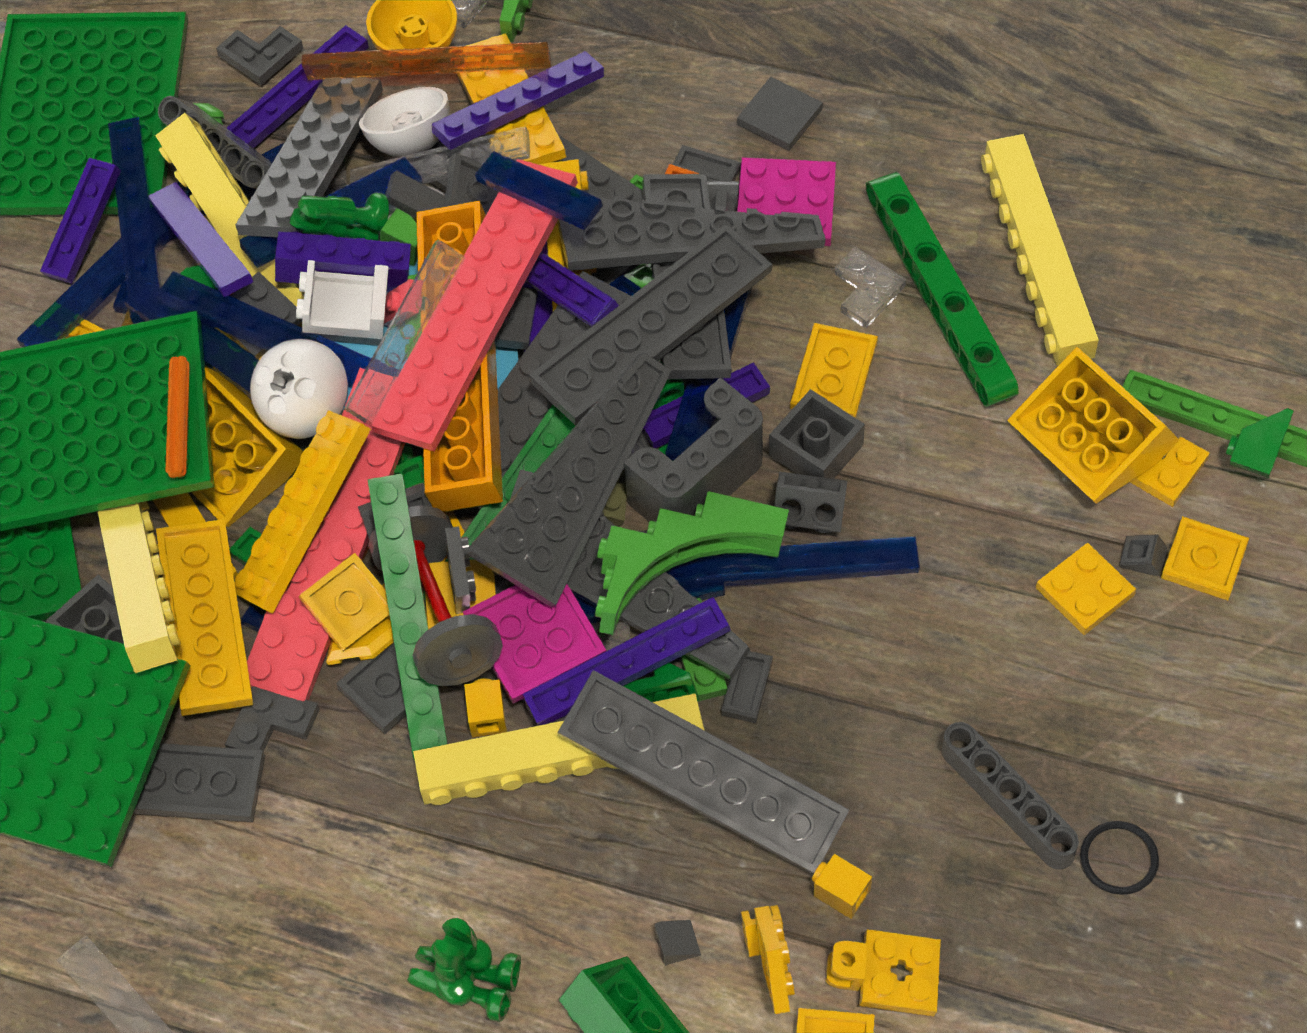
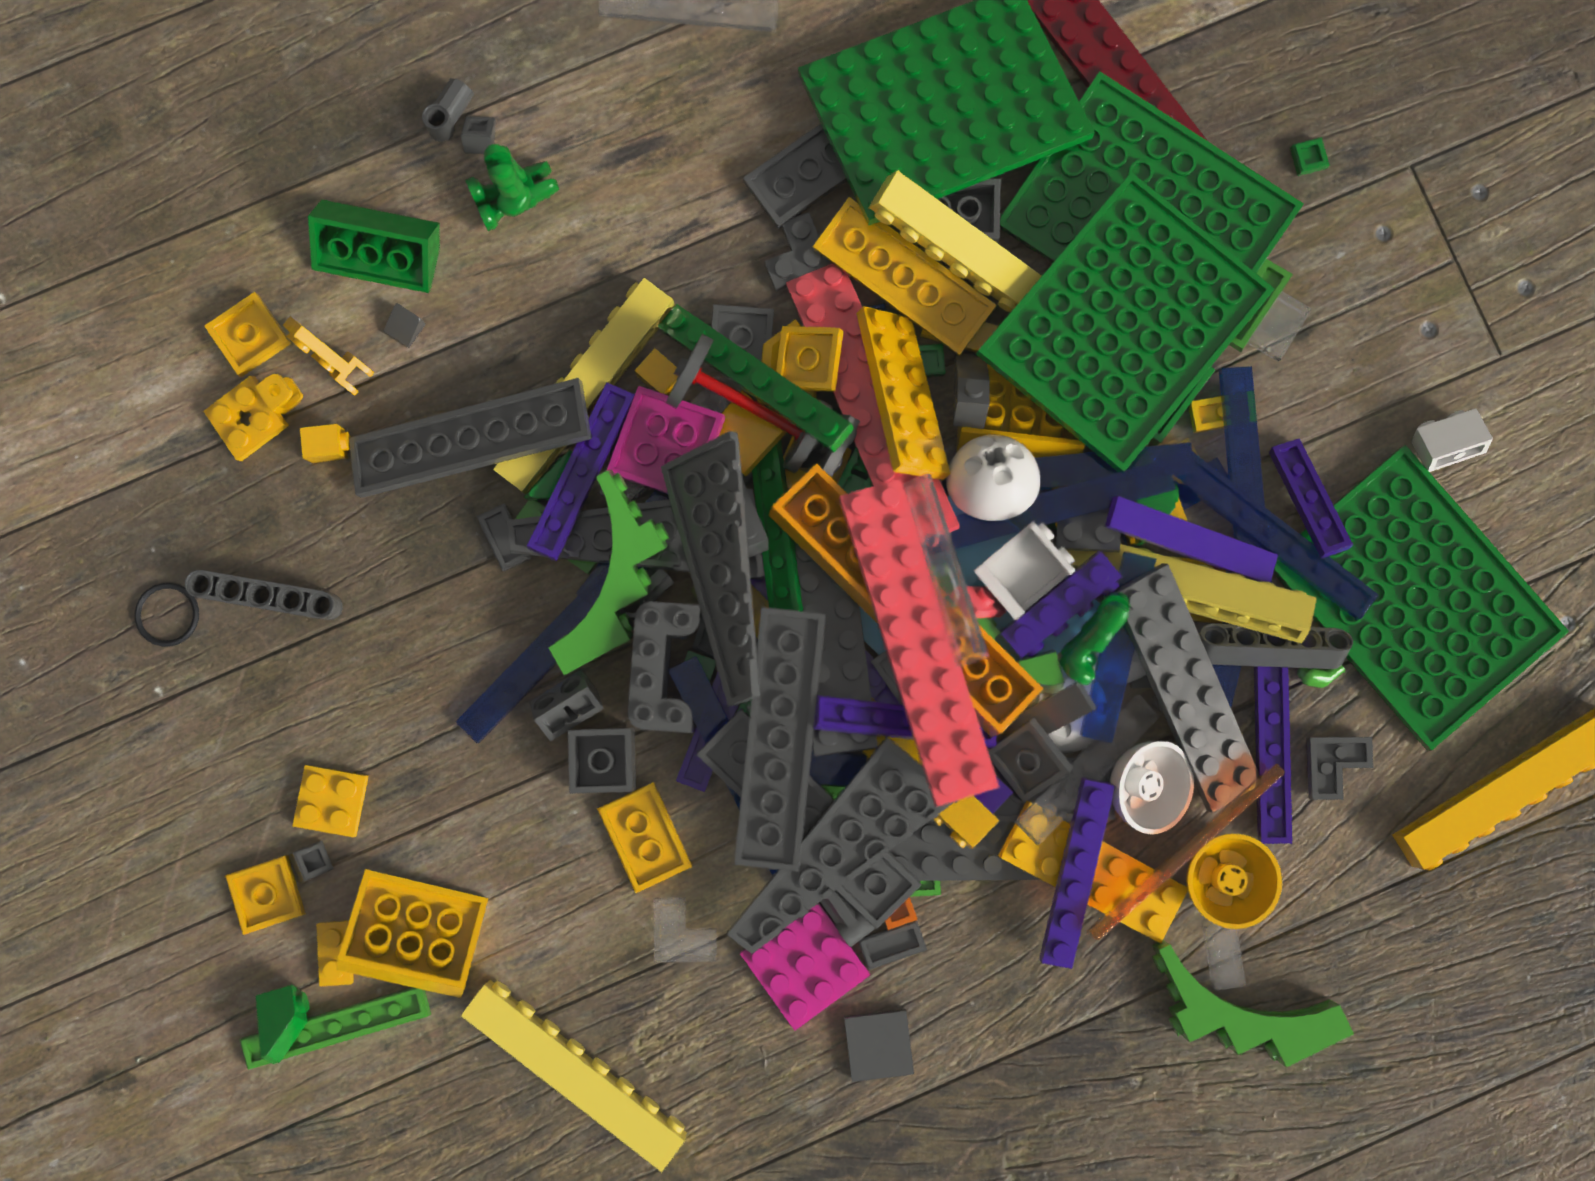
camera: 135 degrees right, 25 degrees up
(177, 417) = (1048, 375): orange axle -> none
(243, 479) = (970, 391): none -> dark grey slope
(461, 580) = (748, 435): dark grey plate -> none
(539, 190) = (948, 764): clear blue tile -> none
(942, 290) = (622, 975): green beam -> none

